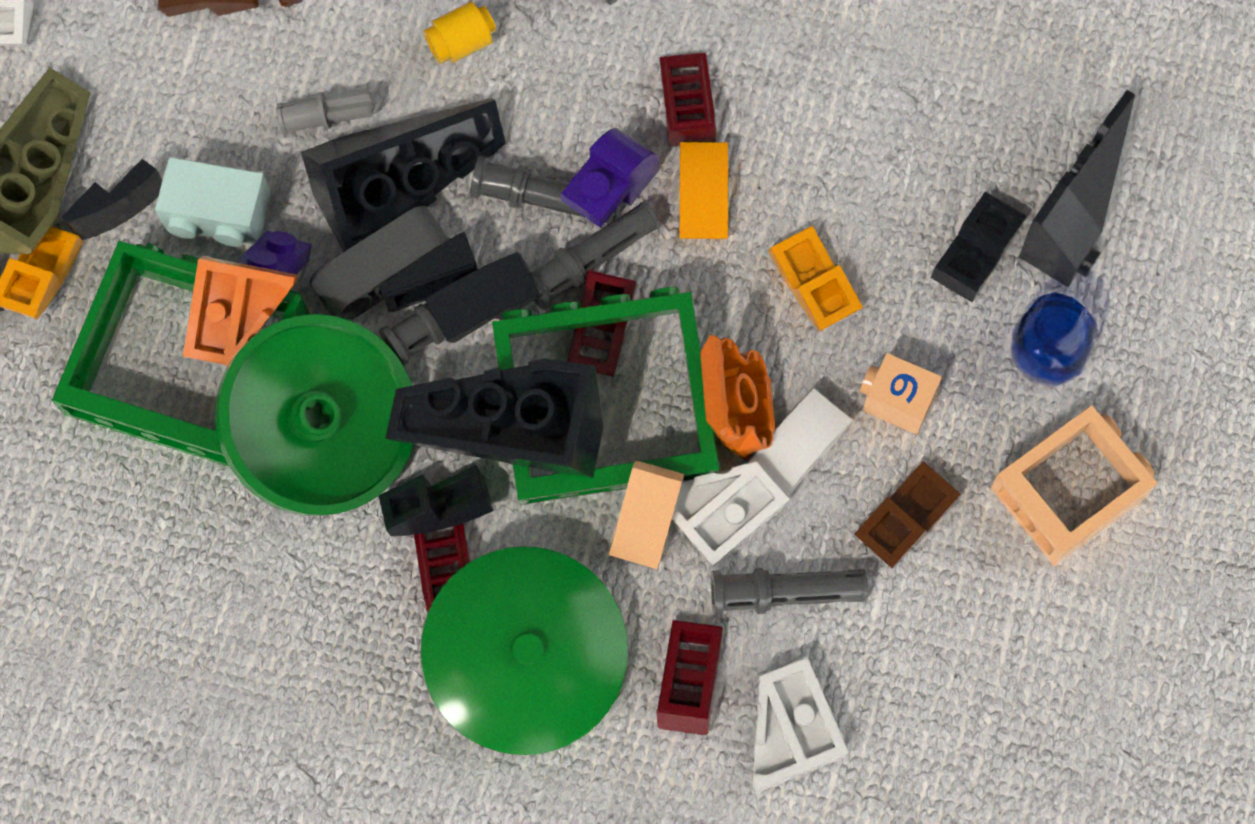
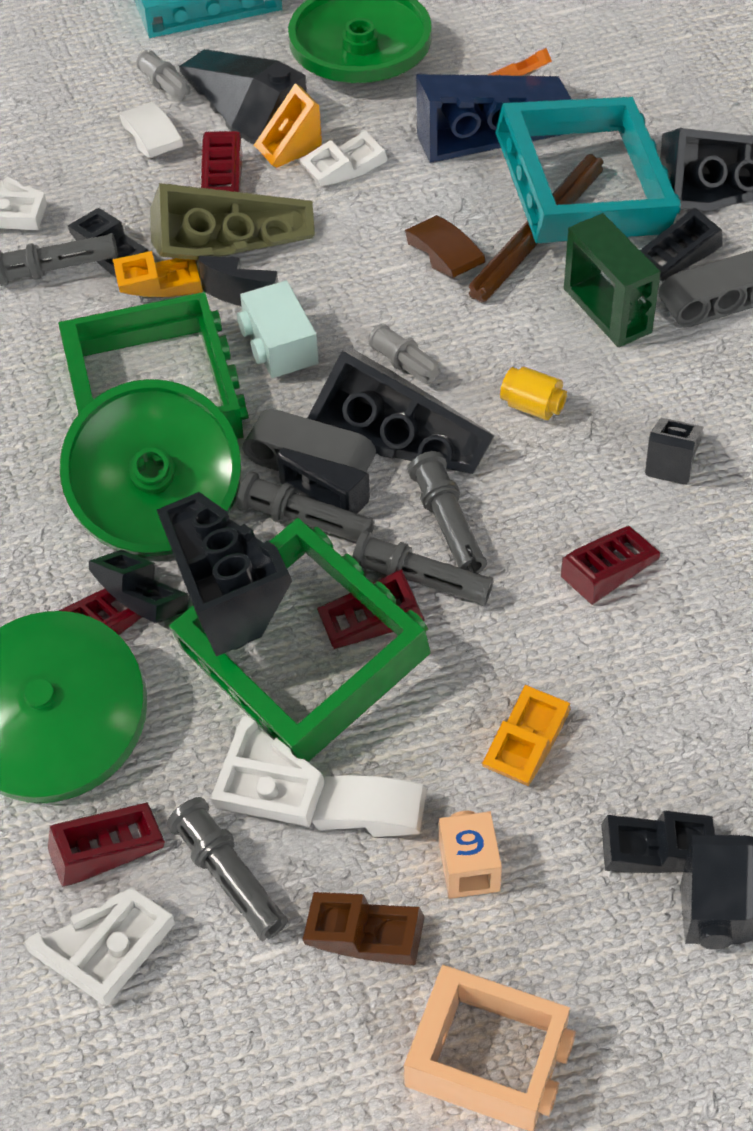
camera: 55 degrees right, 20 degrees down
(231, 306) = (194, 359): orange wing -> none
(278, 252) = (251, 381): dark purple plate -> none
(483, 296) = (320, 506): black slope -> none
(614, 173) = (502, 534): dark purple brick -> none
(646, 514) = (218, 720): light nougat tile -> none
(703, 190) = (536, 612): light orange slope -> none
(737, 397) = (360, 716): orange slope -> none
(1053, 340) = (608, 945): clear blue piece -> none

